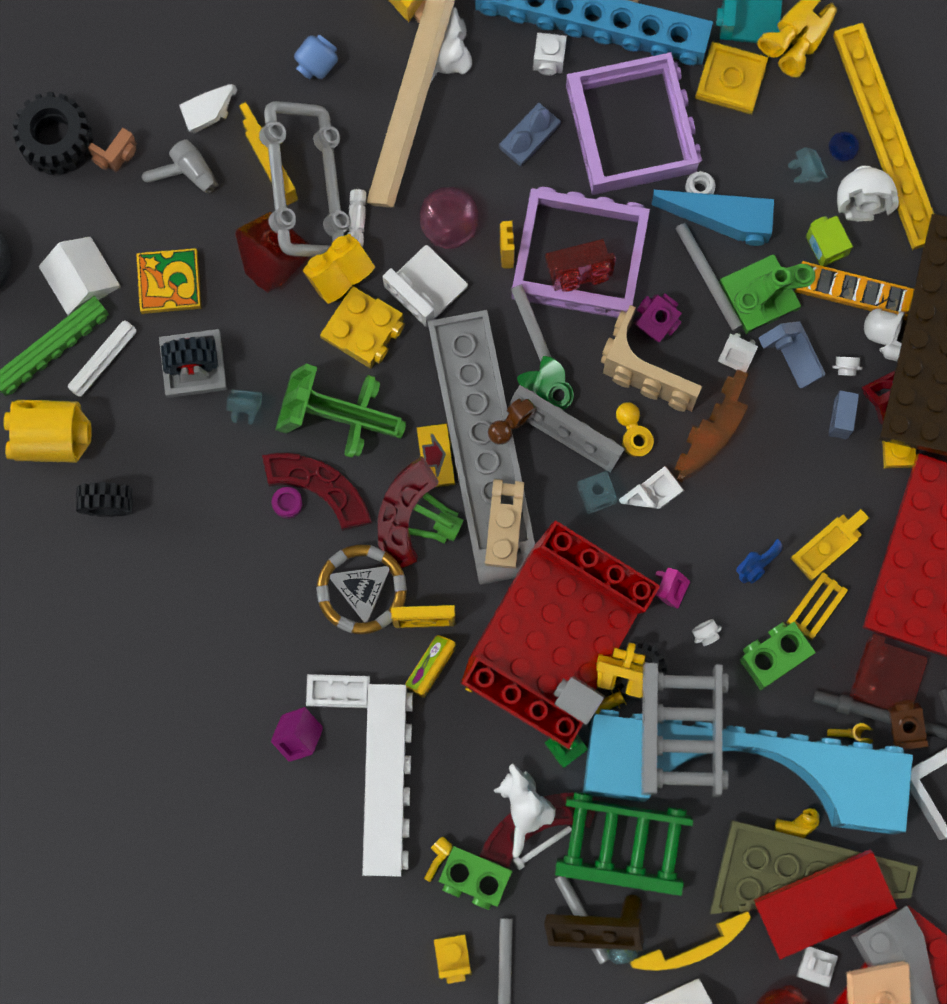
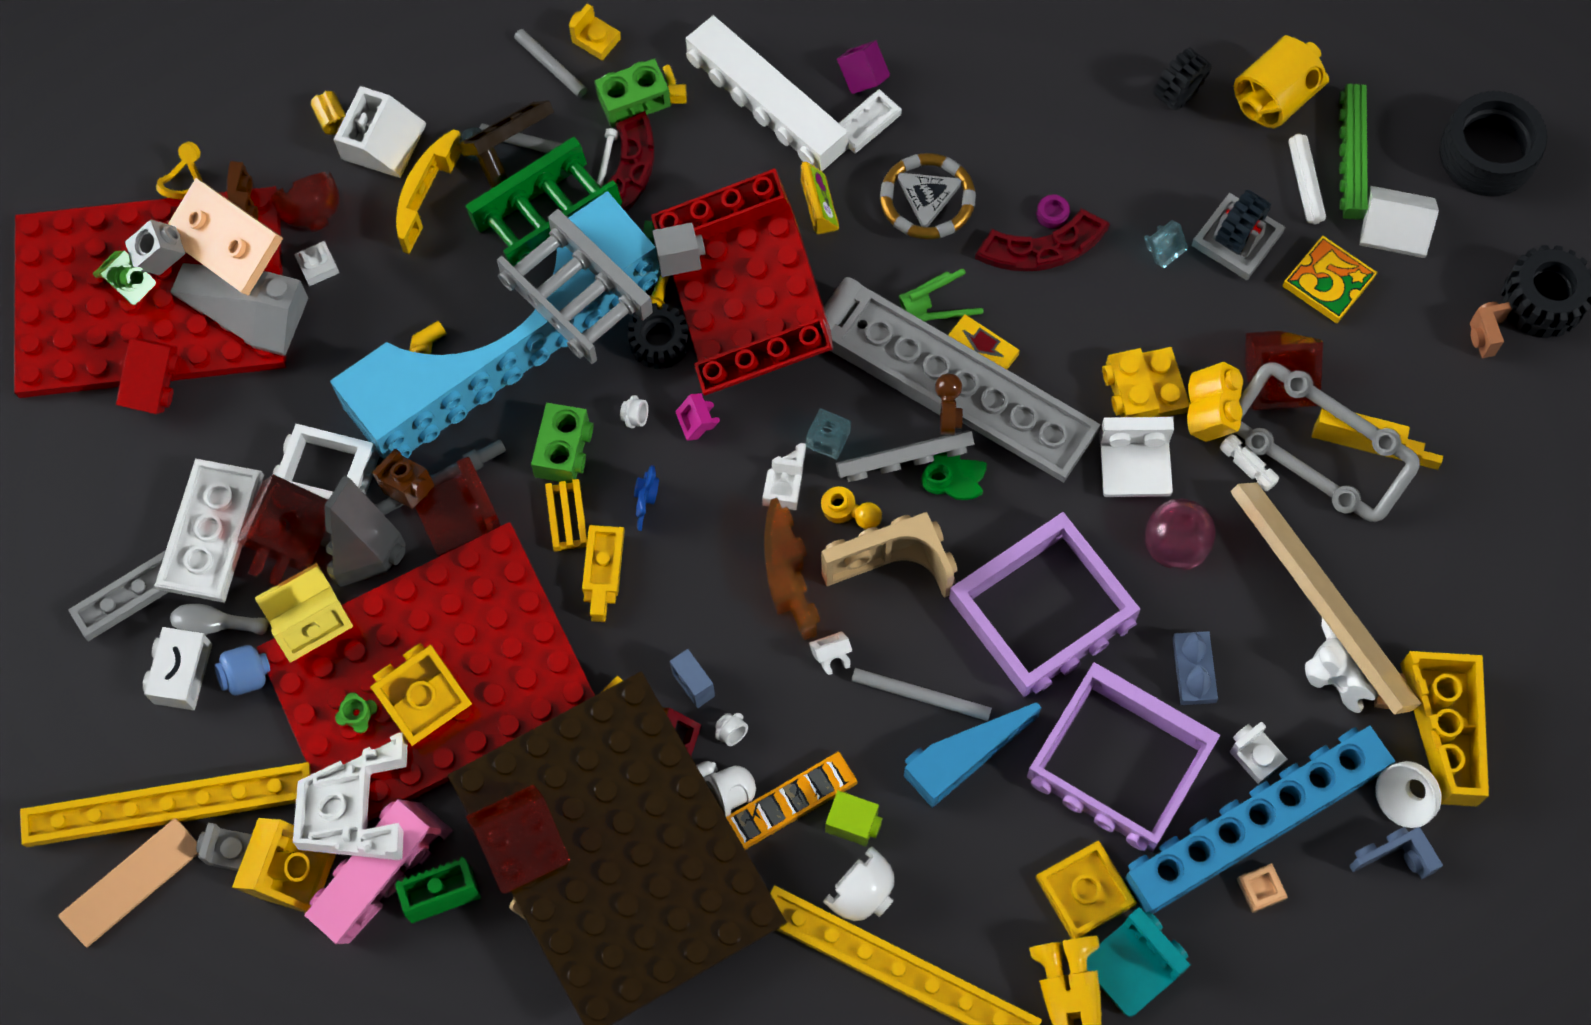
camera: 135 degrees right, 10 degrees down
(186, 161) = (1422, 375): light grey piece -> none
(207, 108) = (1464, 431): white slope -> none
(302, 399) = (1108, 286): bright green piece -> none
(316, 57) = (1433, 553): medium blue head -> none
(397, 507) = (960, 257): dark red tile -> none
(423, 616) = (859, 214): yellow tile -> none
(504, 525) = (870, 326): tan plate -> none
(506, 244) = (1103, 548): yellow tile -> none
(527, 807) = (642, 162): white animal -> none
(530, 321) = (1020, 505): light grey bar -> none
(580, 265) = (1029, 575): clear red bracket -> none
(610, 668) = (669, 309): yellow hips -> none
(646, 319) = (925, 608): magenta brick -> none
(702, 178) = (1013, 753): white plate -> none
(765, 291) = (862, 716): bright green piece -> none
(767, 860) = (394, 306): olive wing -> none
(797, 351) = (793, 703): sand blue bracket -> none
(811, 166) = (936, 871): clear light blue tile -> none
(825, 904) = (348, 299): red tile -> none
(843, 146) = (926, 923): clear blue plate -> none
(851, 733) = (441, 446): yellow hand -> none

